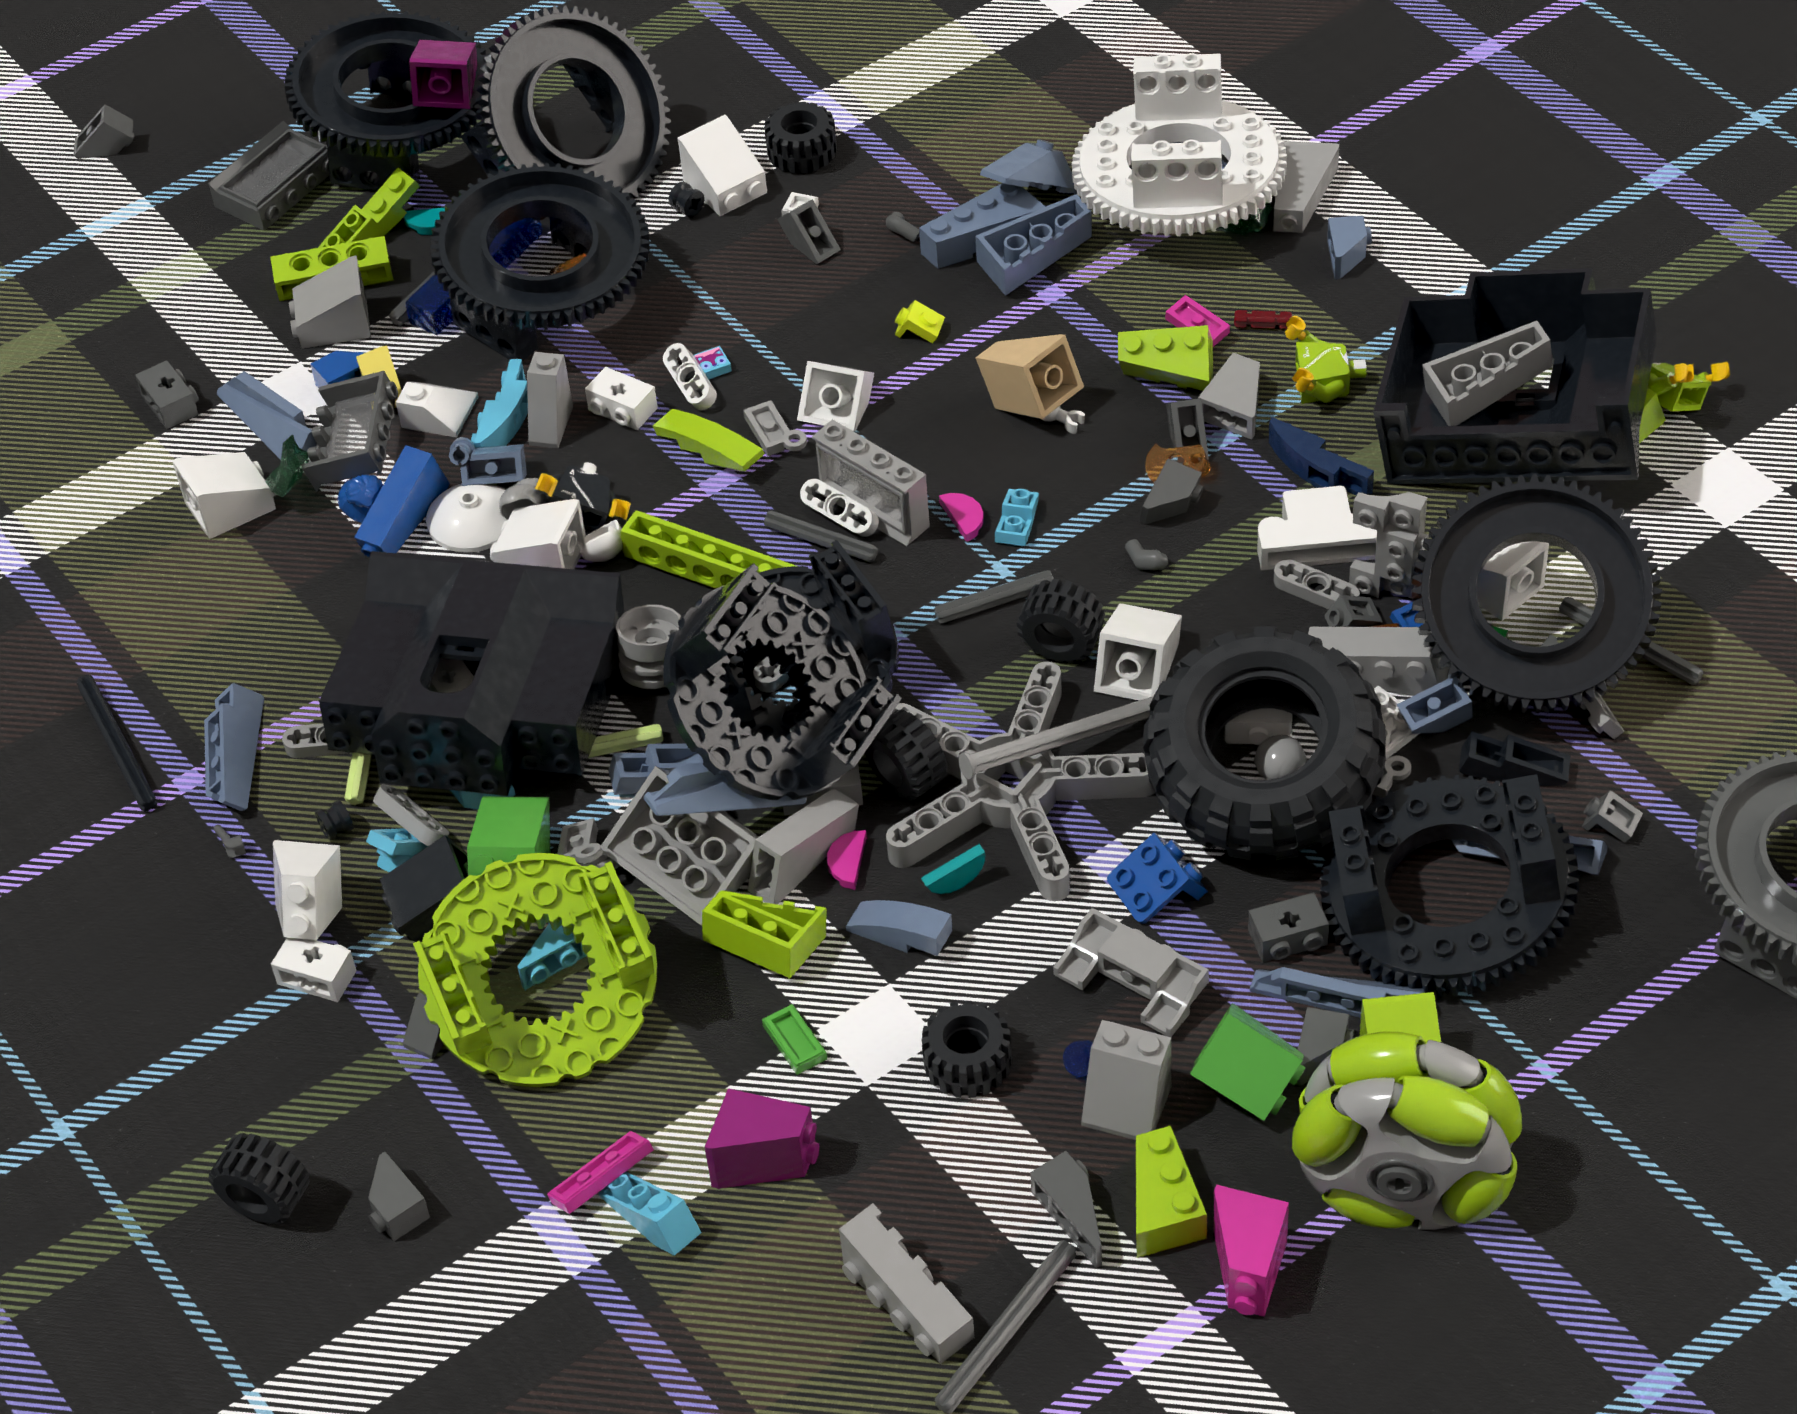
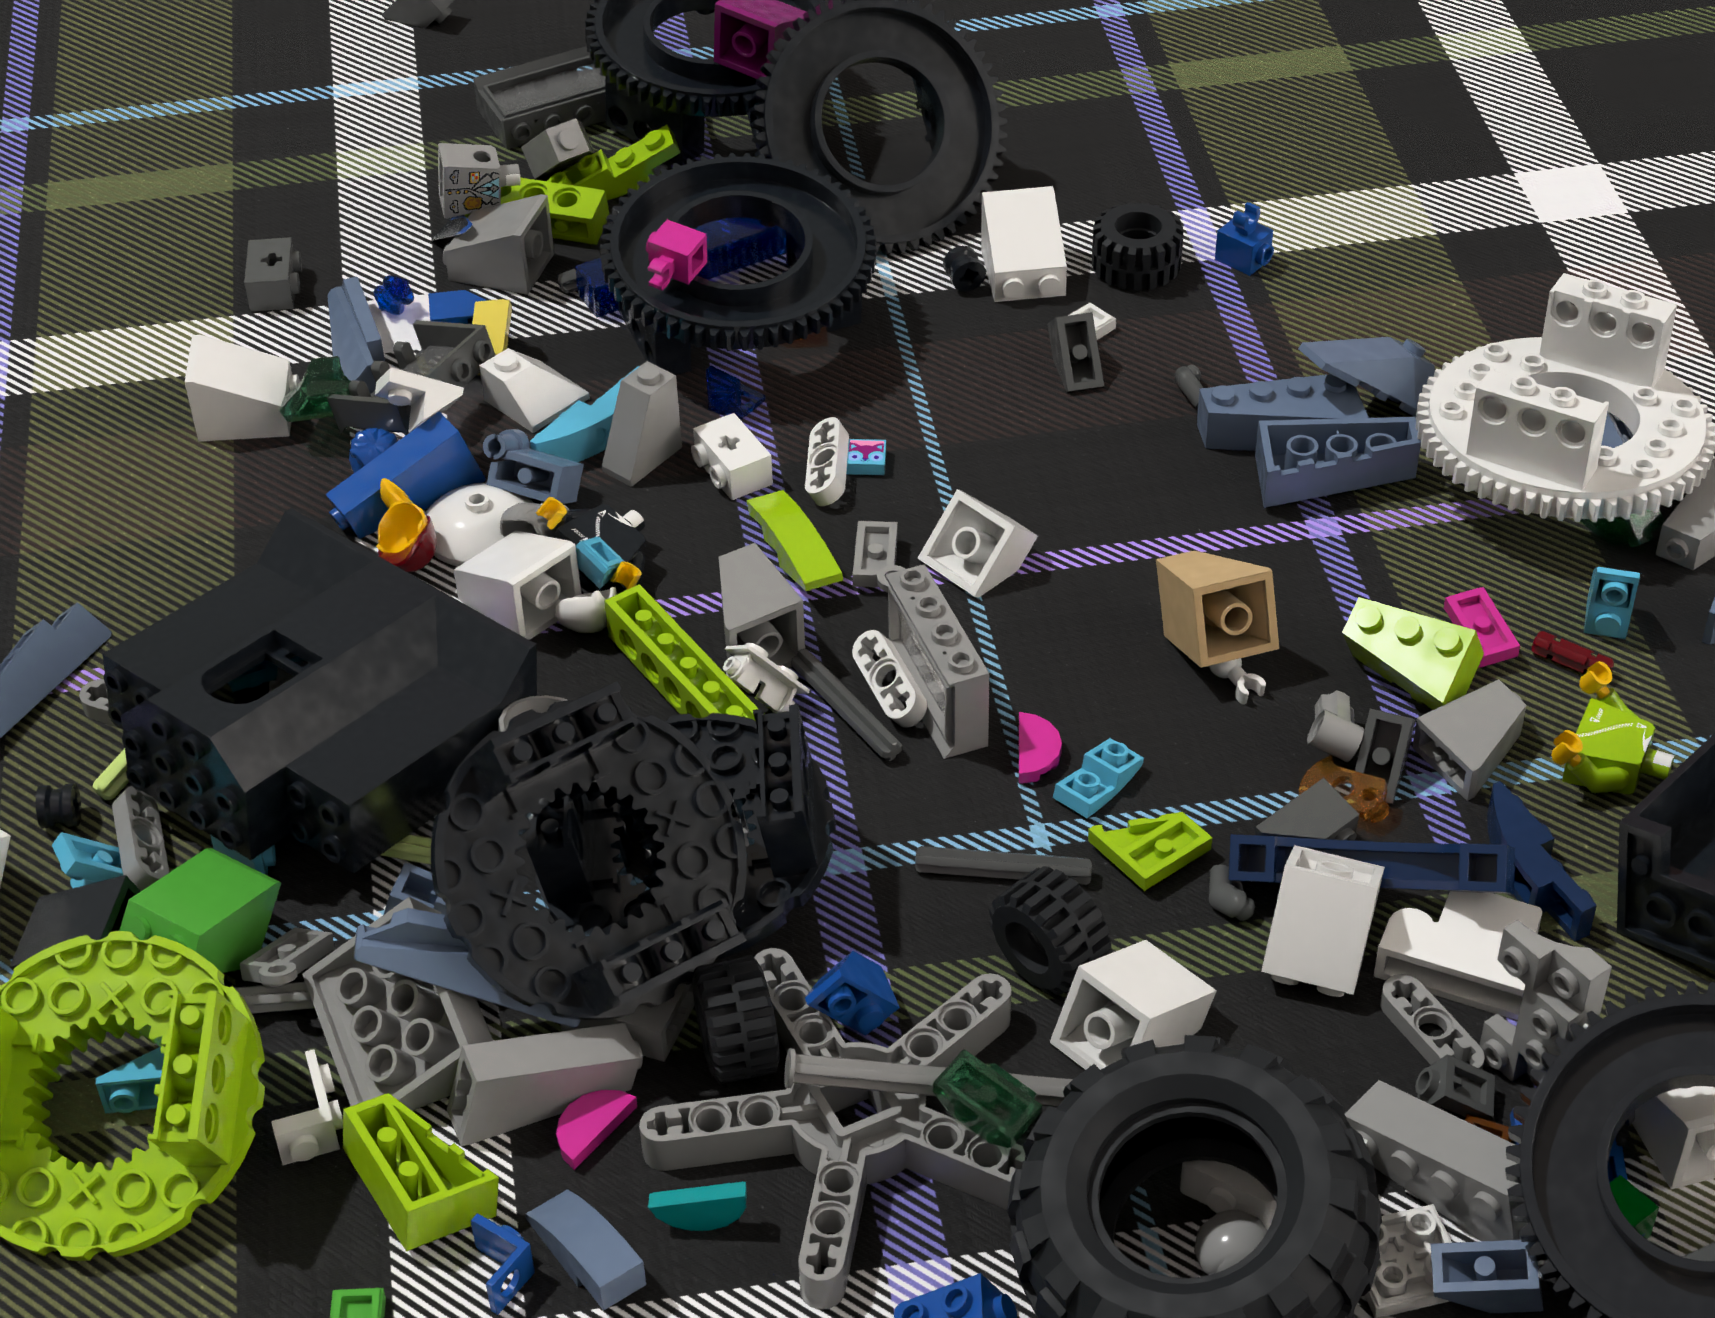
camera: 25 degrees right, 5 degrees down
(277, 373) = (393, 295): none -> clear blue wheel
(283, 264) = (471, 178): none -> light grey torso
(284, 306) = (456, 226): none -> black sticker
(320, 215) = (557, 148): none -> light grey slope
(387, 438) = (422, 393): none -> white slope
(429, 536) = (404, 531): none -> yellow hair
(508, 265) = (675, 254): none -> dark pink brick
(585, 355) = (725, 394): none -> clear blue bracket
(594, 506) = (597, 560): none -> medium azure slope
(680, 933) = (313, 1131): none -> white bracket
(726, 498) = (760, 605): none -> light grey slope
(761, 538) = (751, 666): none -> white hinge
(852, 948) = (511, 1251): none -> blue bracket
(873, 106) = (1244, 242): none -> blue brick
(920, 321) = (1137, 498): neon yellow bracket -> none
(963, 710) = (854, 994): none -> blue slope
(1080, 547) = (1152, 847): none -> lime wing
(1095, 735) = (986, 1099): none -> clear green slope
(1148, 424) = (1335, 727): none -> light grey piece
(1220, 546) = (1322, 921): none -> white slope
(1231, 499) = (1407, 865): none -> dark blue arch
(1269, 274) = (1610, 602): none -> medium azure slope

